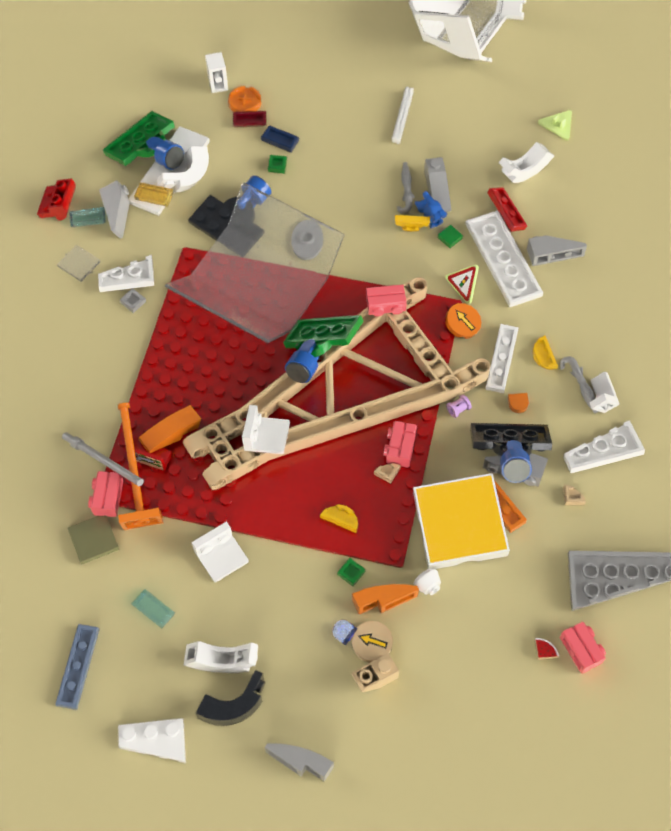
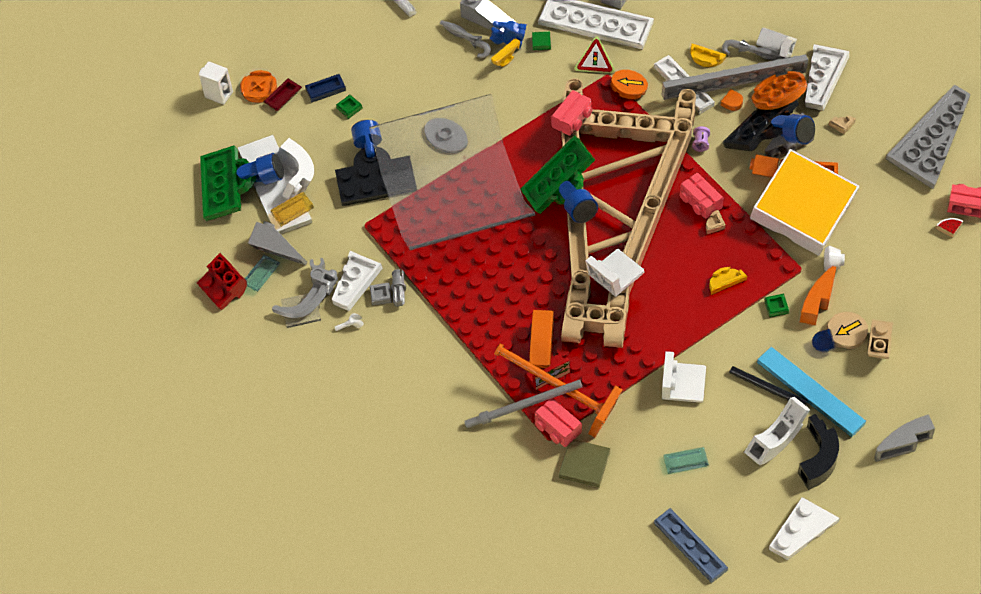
camera: 45 degrees left, 5 degrees down
(93, 300) = (354, 320): none -> white hand
(105, 261) = (323, 284): none -> light grey piece
(144, 307) = (398, 287): none -> light grey axle
(268, 620) = (764, 385): none -> black bar
(290, 656) = (811, 391): none -> medium azure tile
(471, 466) = (764, 165): none -> orange brick
(539, 387) = (734, 76): none -> light grey plate
(553, 427) = (779, 90): none -> orange tile

